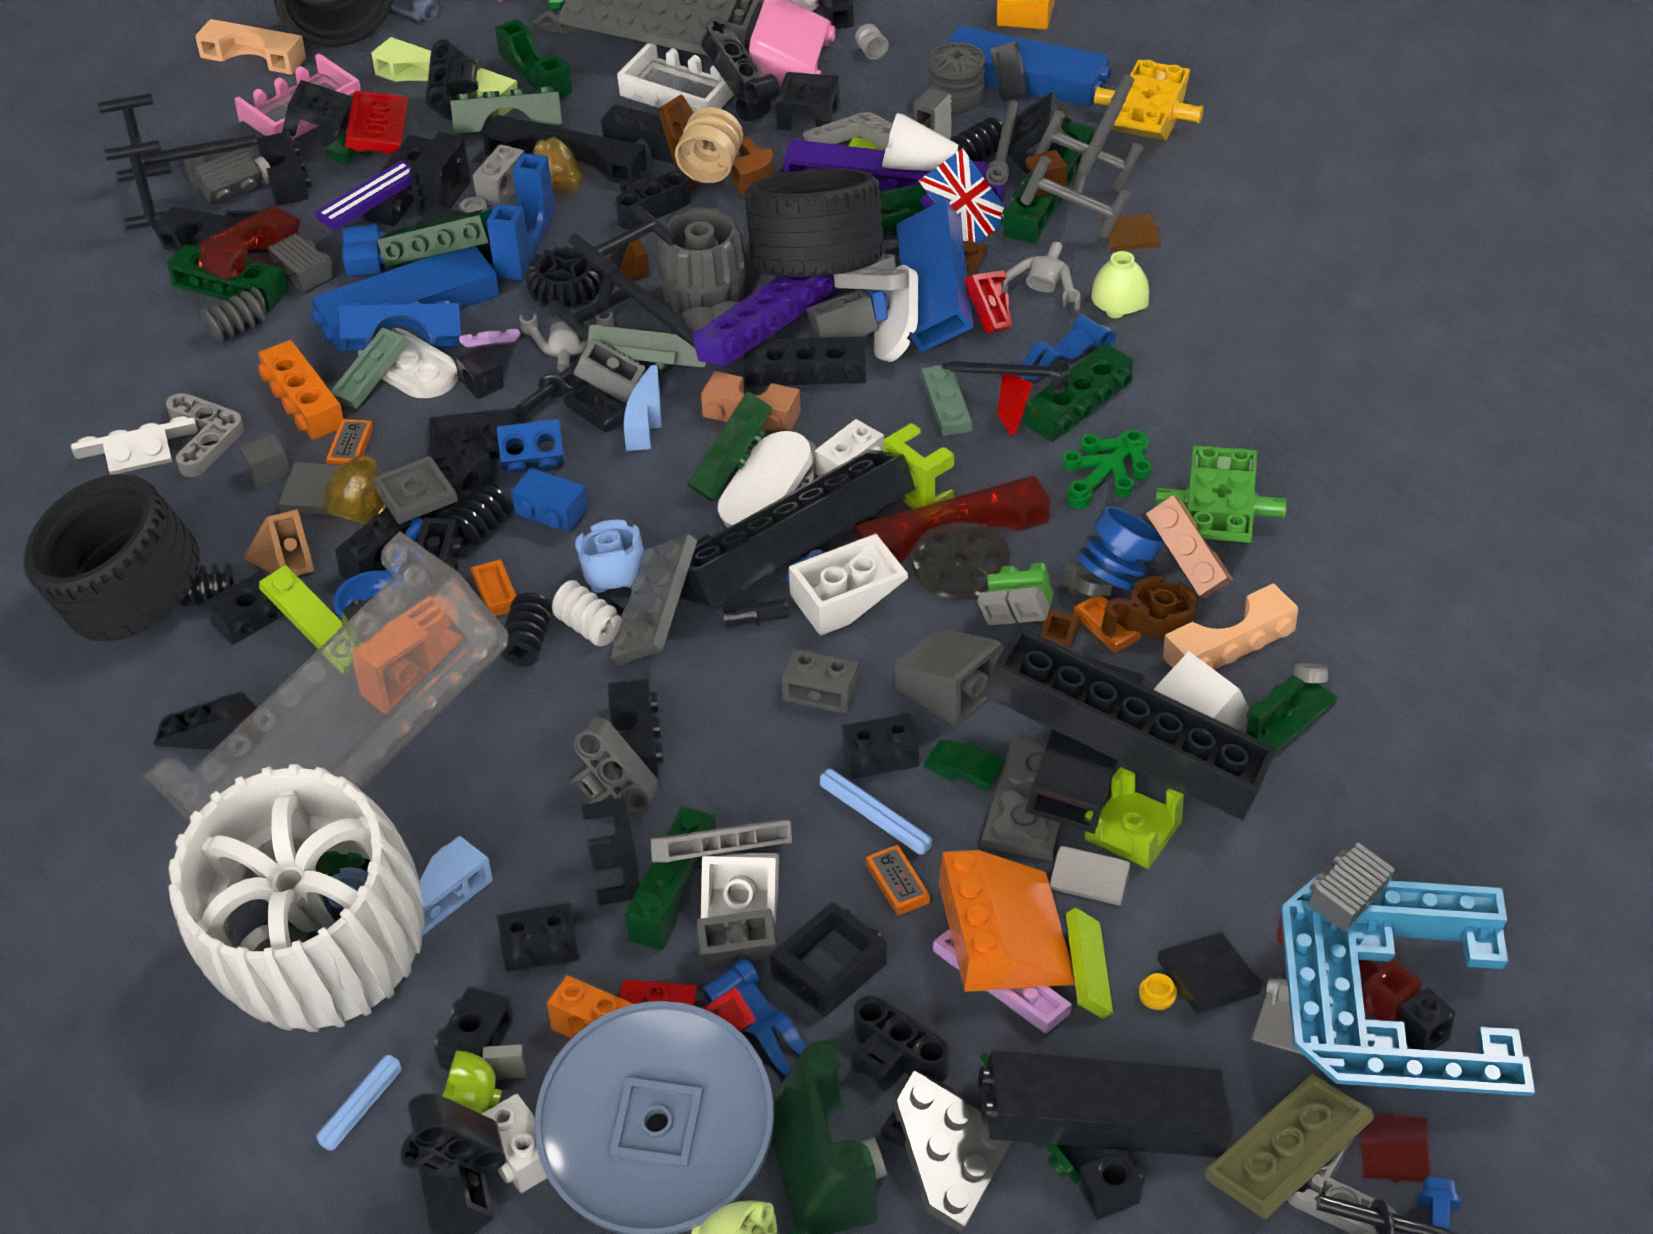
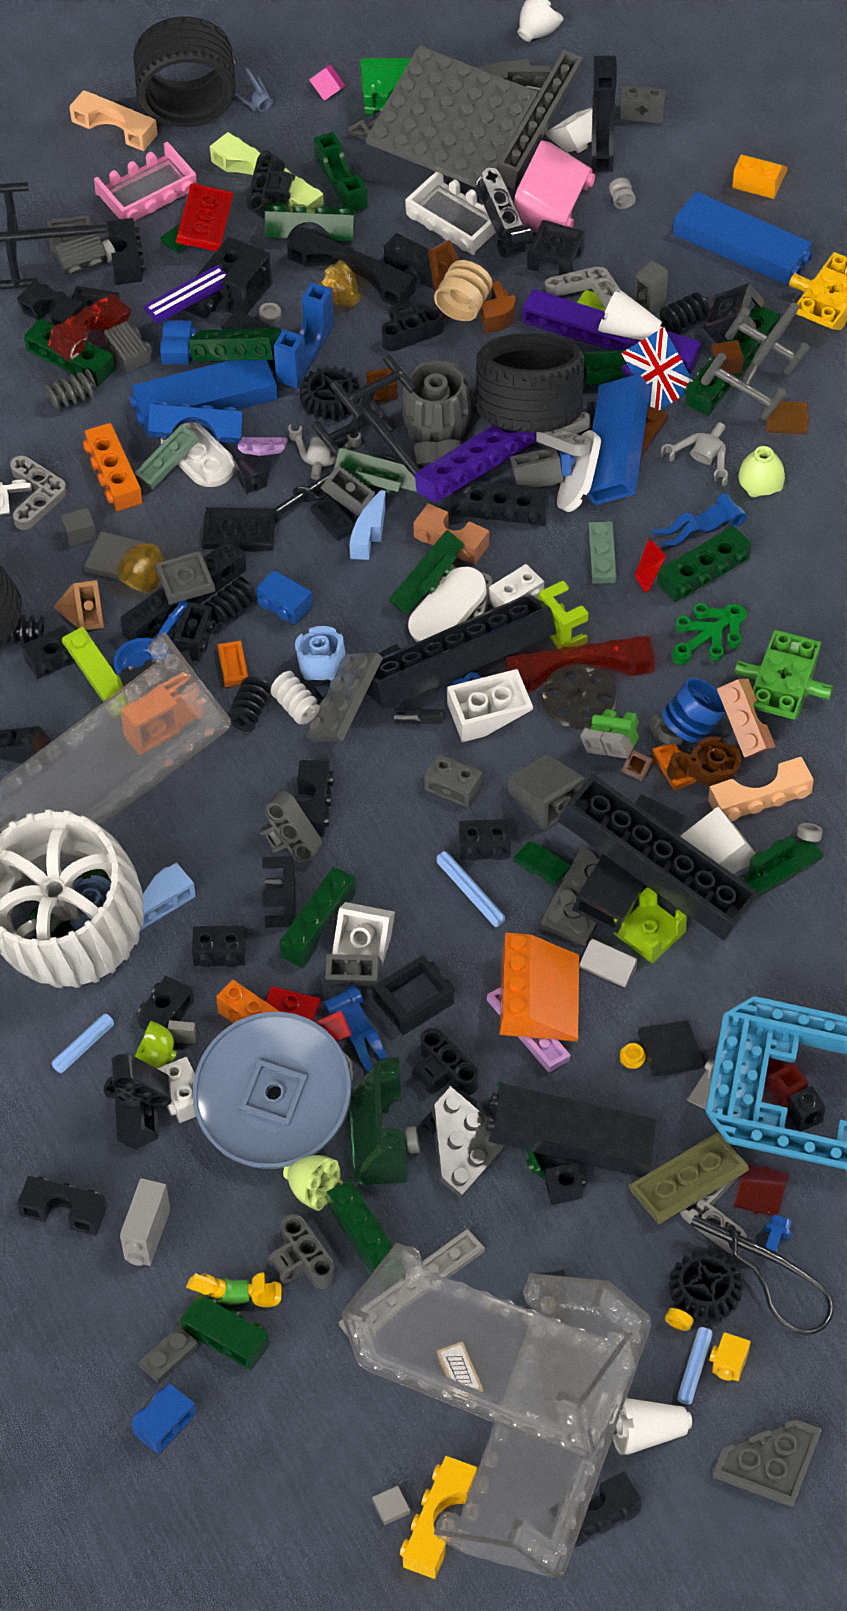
camera: 10 degrees right, 10 degrees up
(319, 107) = (159, 199): black panel -> none
(349, 441) = (144, 520): tile -> none
(495, 176) = (292, 286): light grey brick -> none
(530, 437) = (278, 540): blue brick -> none
(720, 840) = (355, 898): light grey piece -> none
(897, 880) = (474, 943): tile -> none
(959, 71) = (682, 244): dark grey wheel -> none
(989, 301) = (655, 470): red wing -> none
(998, 170) = (690, 349): dark grey piece -> none
(1009, 71) = (725, 247): black plate -> none
(1058, 371) = (686, 549): black piece -> none
(1089, 963) = (590, 1027): lime tile -> none
(1350, 885) = (772, 1008): dark grey brick -> none

